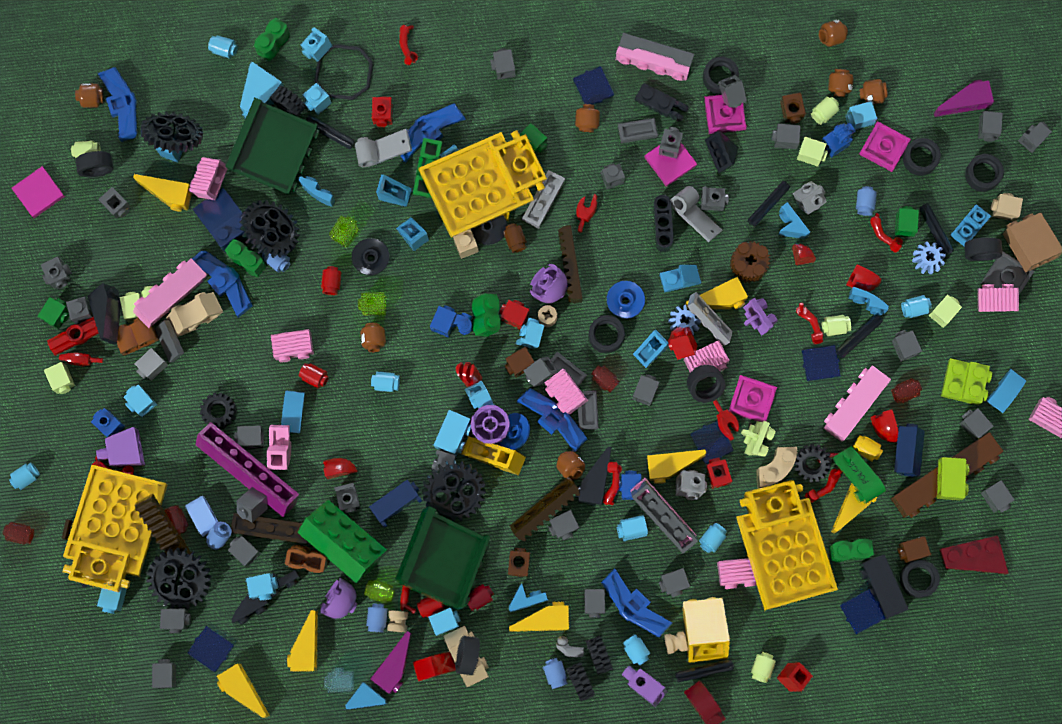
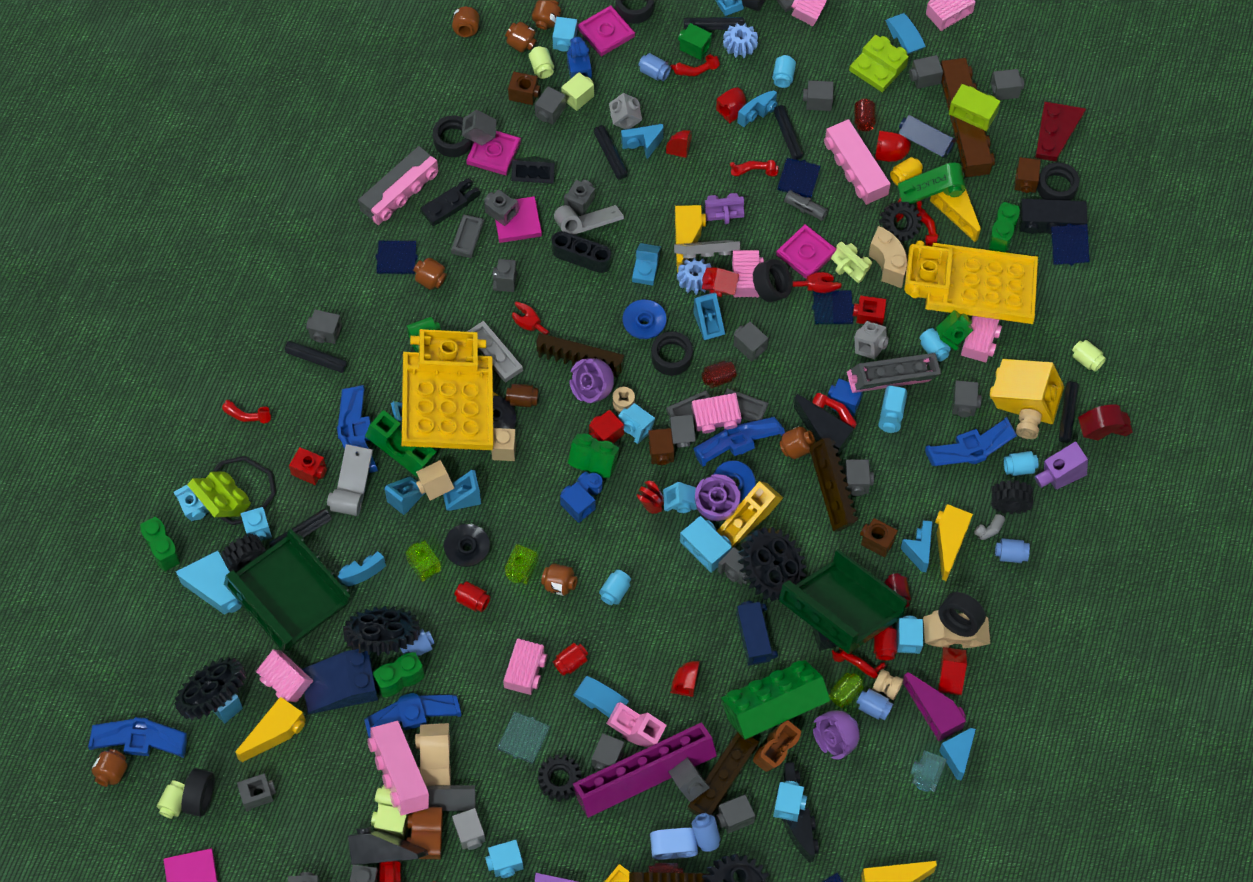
camera: 70 degrees left, 15 degrees down
(222, 46) = (136, 599): medium azure brick -> none
(241, 370) = (523, 737): none -> clear light blue piece
(304, 650) = (876, 793): yellow slope -> none
(326, 60) = (220, 494): none -> lime plate
(353, 504) = (722, 686): dark grey brick -> none
(409, 207) = (434, 480): none -> tan brick
(477, 70) = (316, 356): none -> black axle
(580, 682) = (1033, 526): black tyre -> none
(594, 602) = (953, 482): dark grey brick -> none
(668, 465) = (840, 350): yellow slope -> none
(730, 548) = (954, 329): none -> green brick
(757, 254) = (664, 190): reddish brown brick -> none
(794, 676) = (1111, 329): red brick -> none
(795, 380) = (806, 205): none -> dark grey pin
(836, 325) = (768, 145): yellowish green brick -> none
(945, 311) = (801, 48): yellowish green brick -> none

